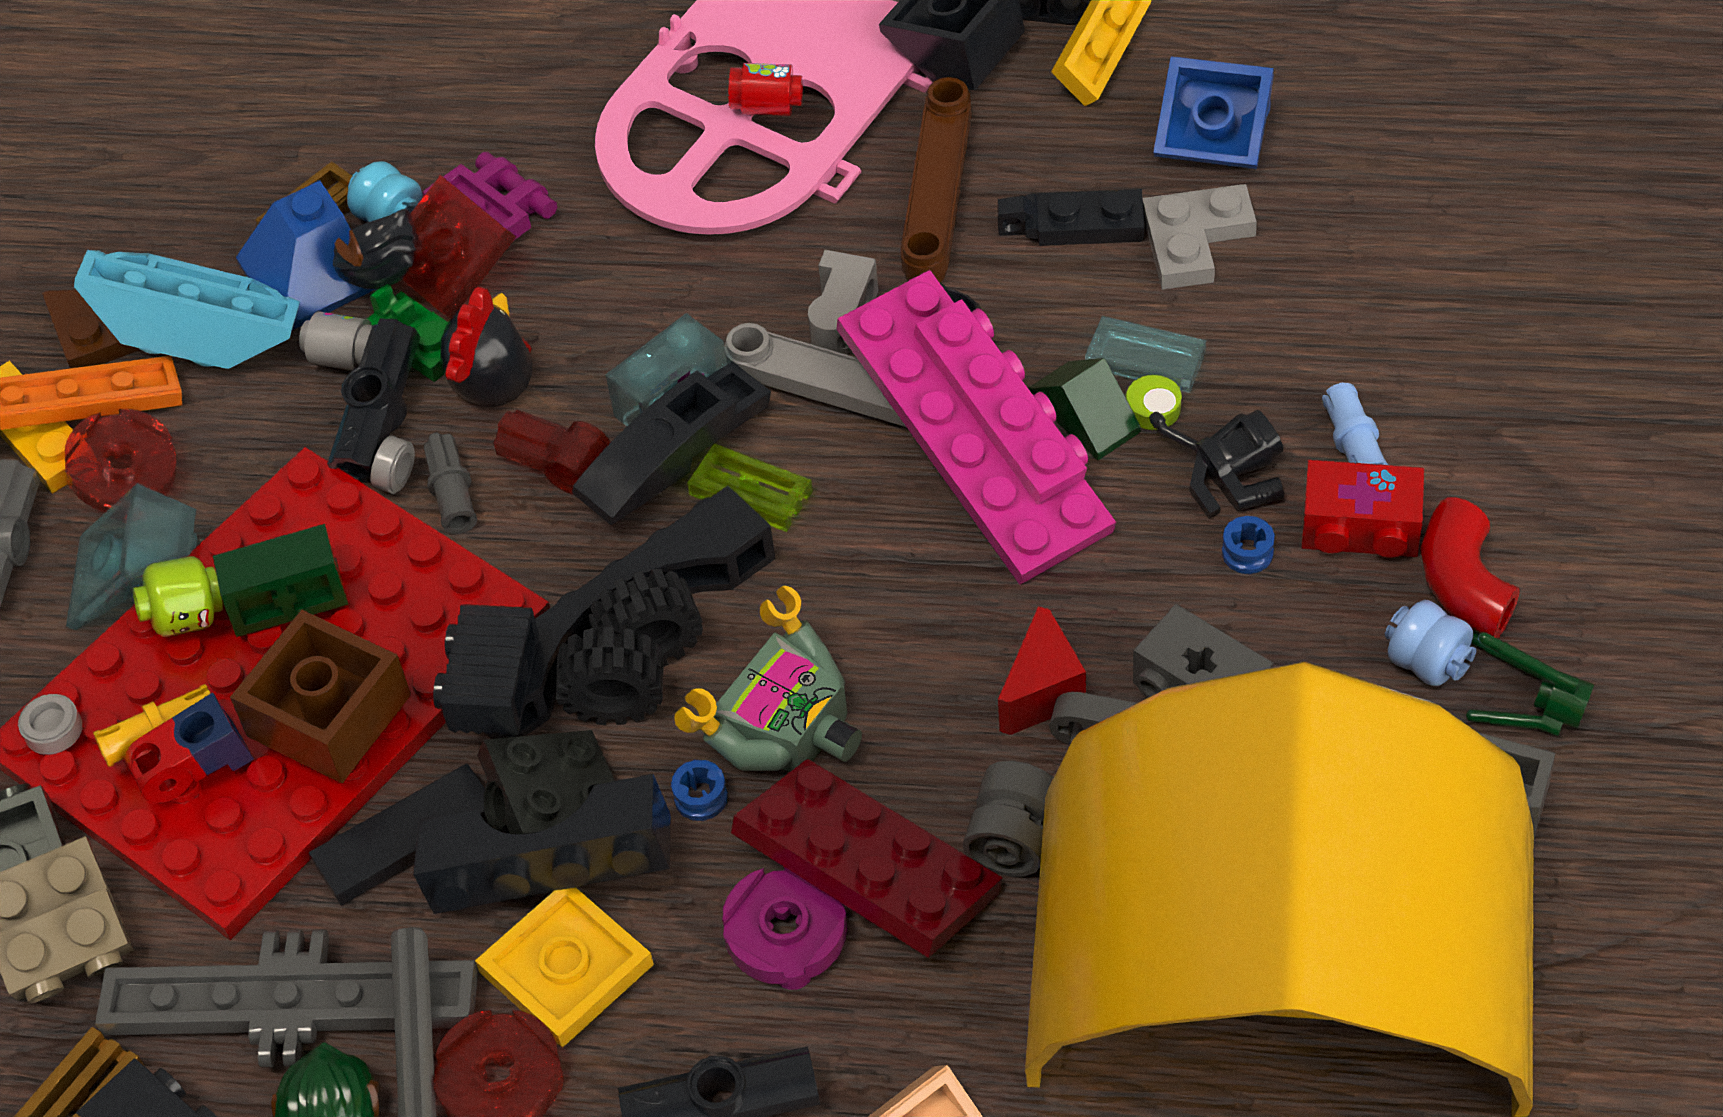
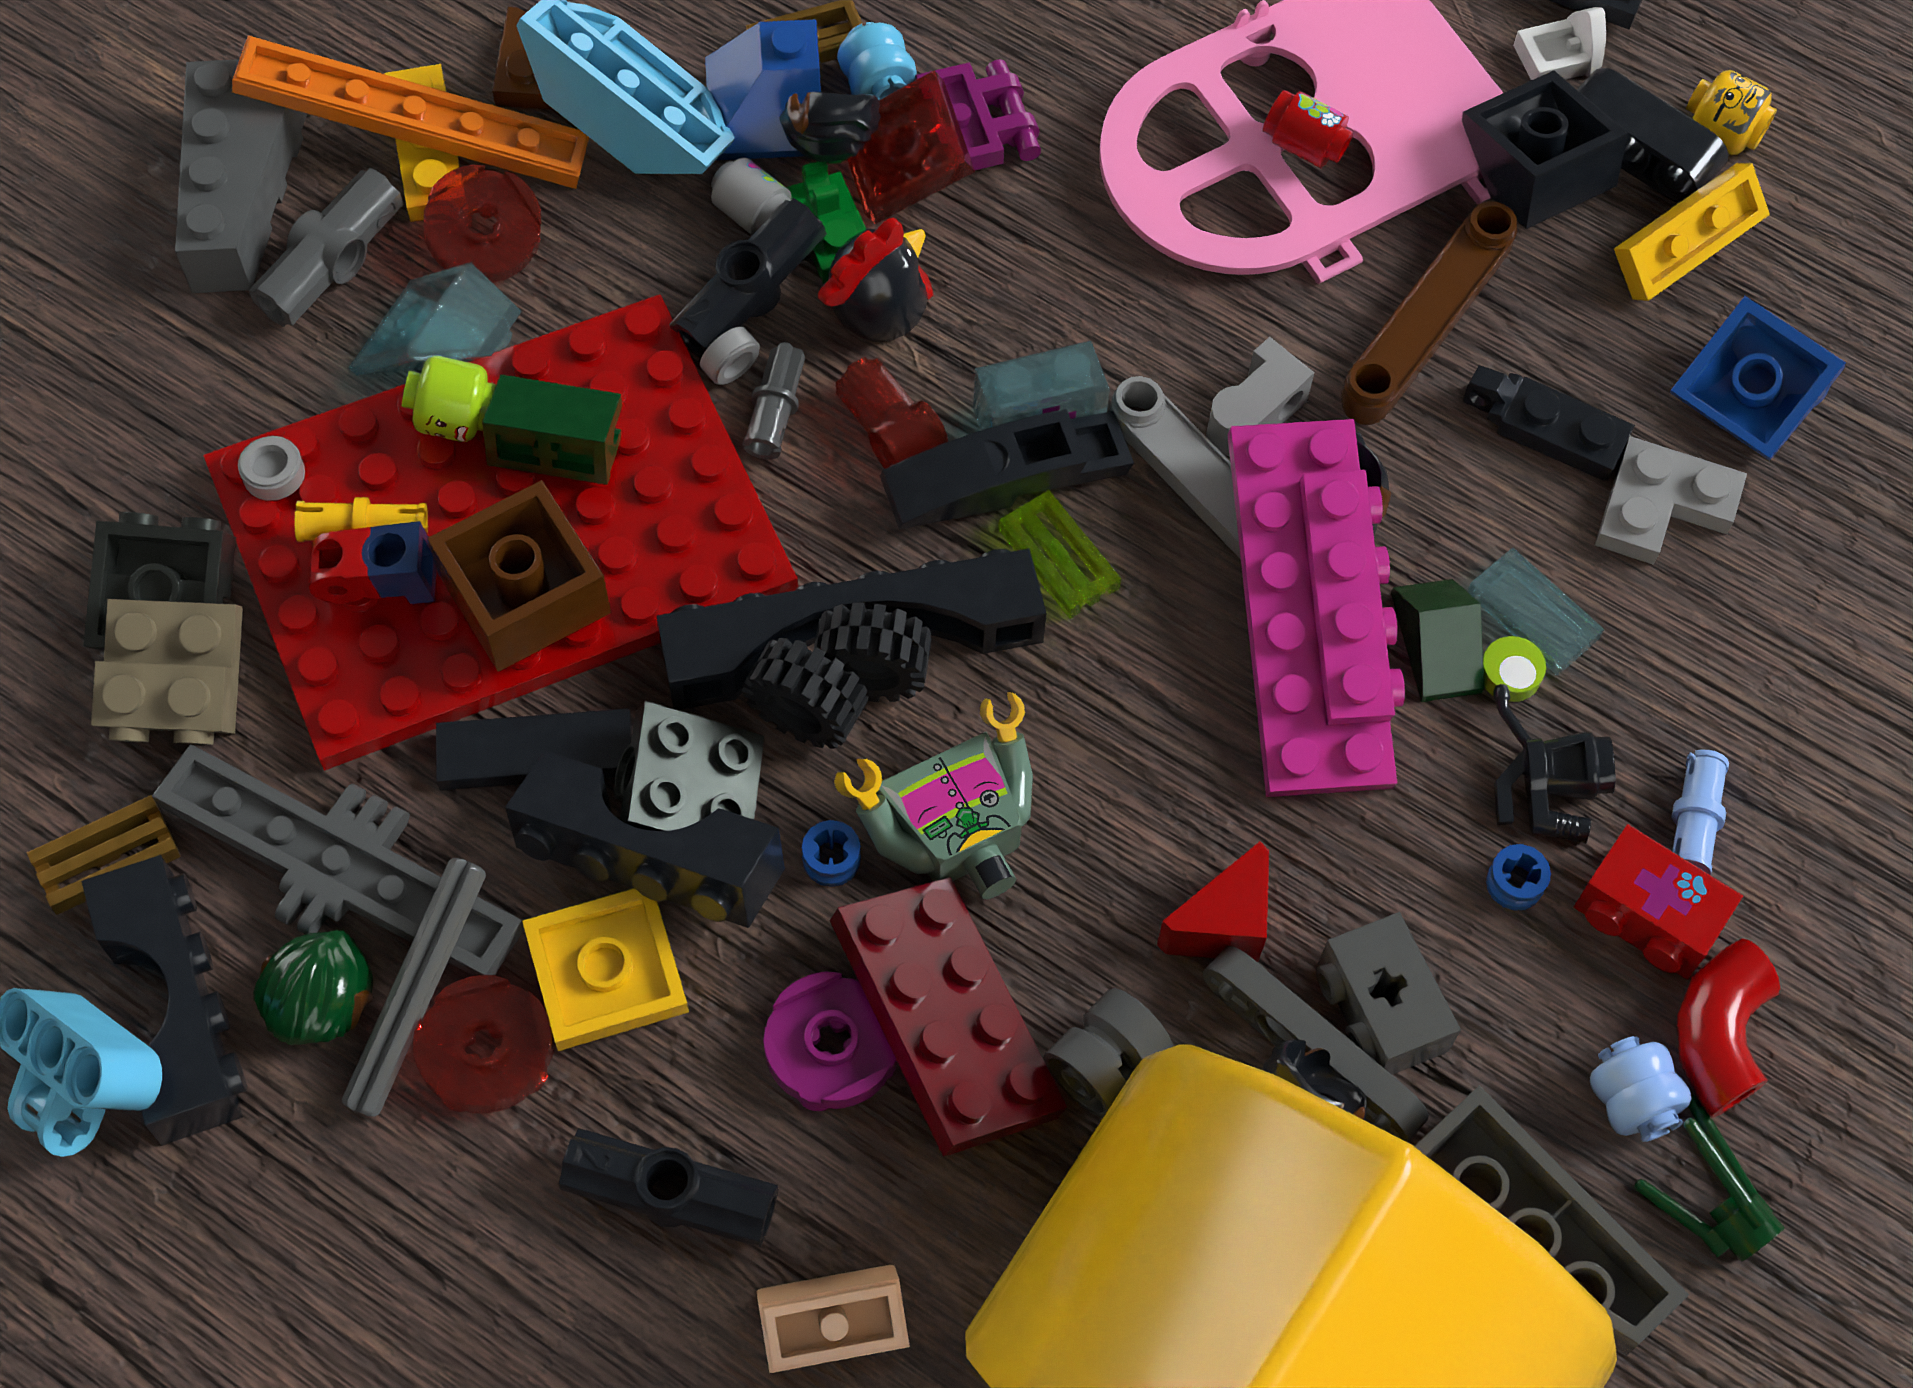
camera: 20 degrees right, 10 degrees up
(487, 669) = (686, 630): black brick -> none

